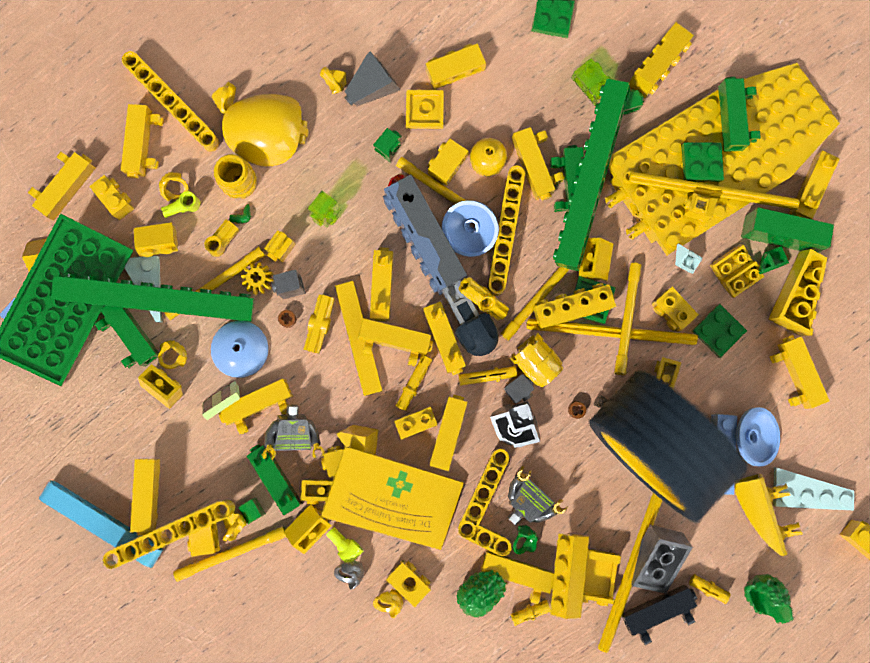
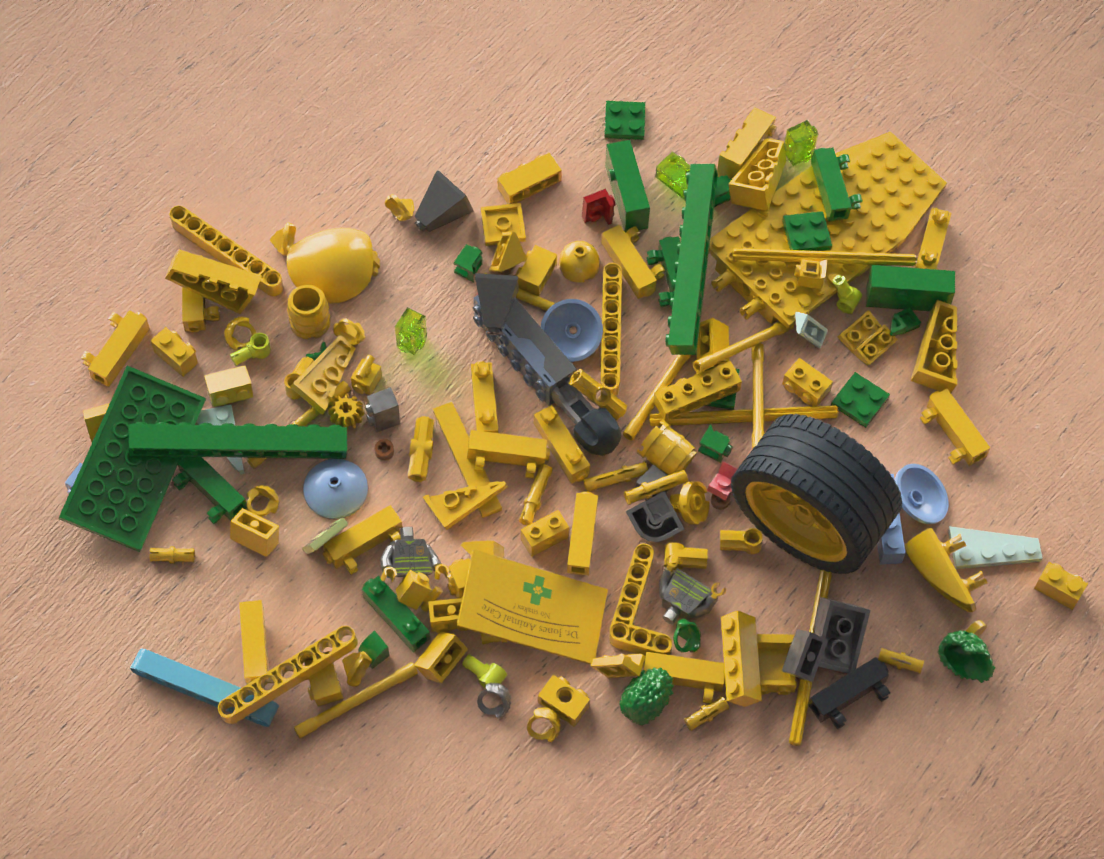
camera: 10 degrees left, 20 degrees down
(89, 393) = (172, 555): none -> yellow pin
(150, 134) = (214, 280): none -> yellow wedge
(236, 247) = (323, 375): none -> yellow wing
(271, 199) = (352, 332): none -> yellow piece
(293, 465) = (415, 590): none -> yellow brick
(342, 383) = (458, 504): none -> yellow wing
(401, 200) = (496, 299): none -> dark grey slope
(422, 145) = (507, 253): none -> yellow slope
(463, 561) = (619, 665): none -> yellow bracket
(510, 105) = (598, 205): none -> red bracket
(517, 399) = (646, 490): none -> yellow pin
(534, 462) = (688, 556): none -> yellow piece
(544, 88) = (627, 185): none -> green brick
(551, 414) = (691, 502): none -> yellow tile
(581, 358) = (715, 445): none -> green window
(585, 395) = (721, 483): none -> coral slope
(586, 454) = (739, 540): none -> yellow piece
(591, 283) = (710, 360): none -> yellow piece
(626, 581) = (804, 655): none -> flat silver brick
(666, 99) = (759, 176): none -> yellow wedge
(712, 65) = (800, 142): none -> clear neon green brick
(727, 228) = (848, 295): none -> neon yellow pin
(781, 570) = (977, 627): none -> yellow tile

